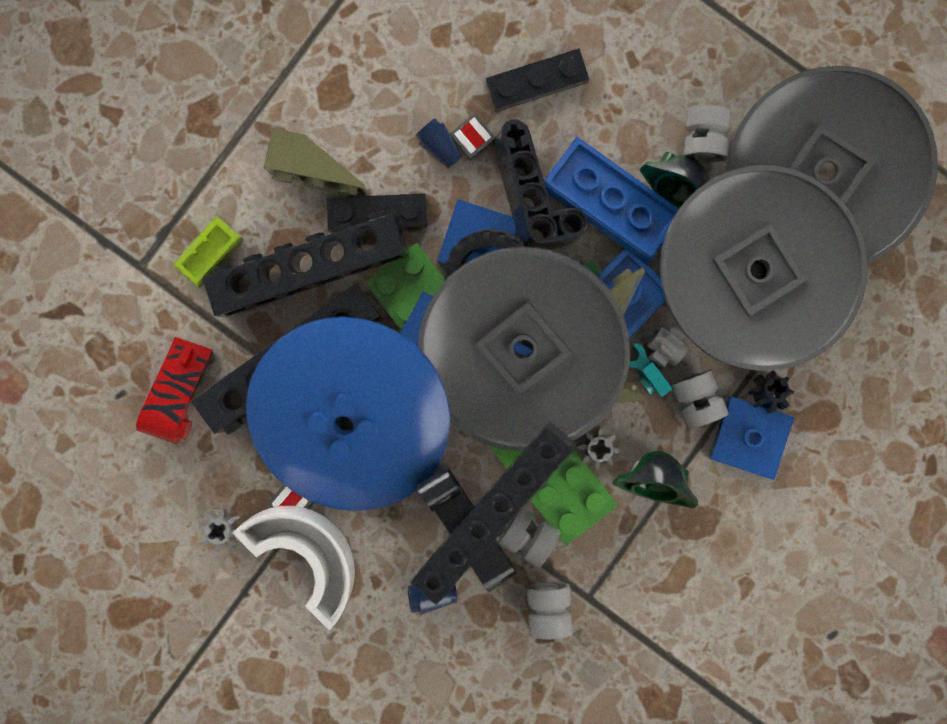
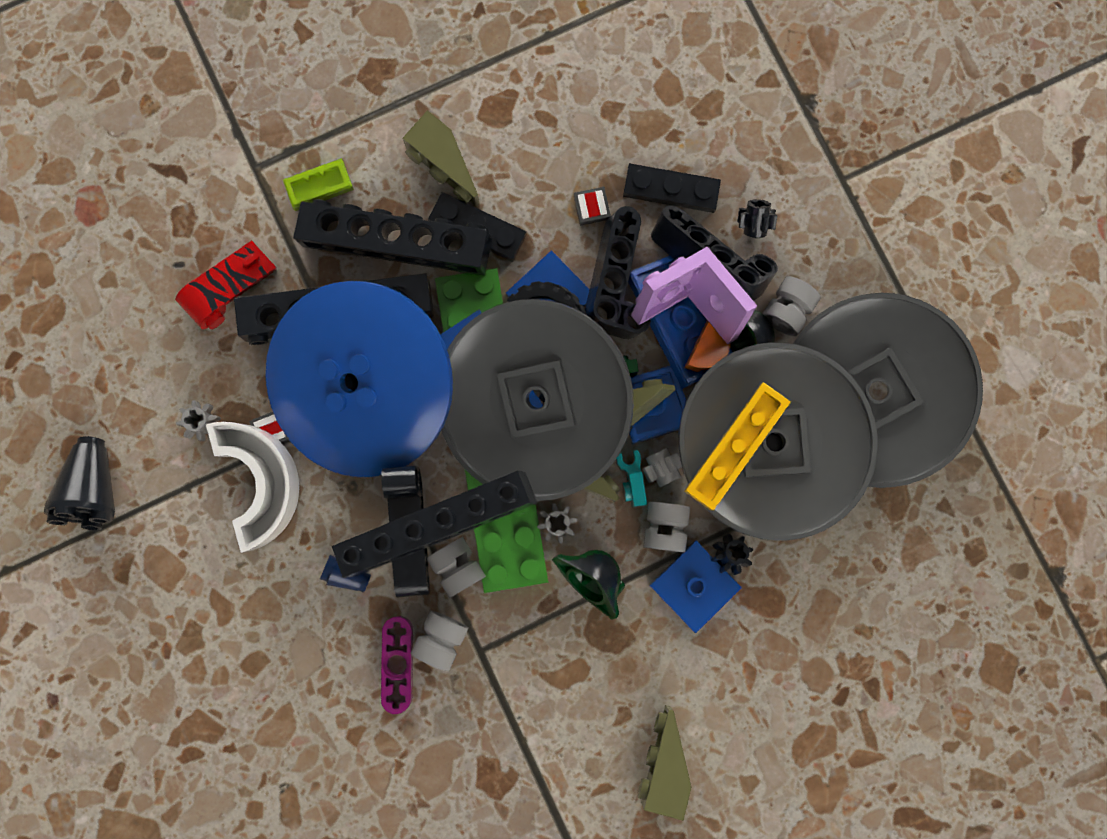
camera: 20 degrees right, 5 degrees down
(150, 645) = (83, 487): none -> black cone
(439, 143) = (560, 195): dark blue cone -> none
(517, 663) = (404, 689): none -> magenta beam
(611, 129) = (683, 236): none -> black beam
(627, 159) = (707, 286): none -> lavender bracket
(633, 67) = (757, 218): none -> black gear
(654, 211) = (707, 350): none -> orange tile
(732, 294) = (737, 446): none -> yellow plate
(819, 627) = (668, 780): none -> olive slope

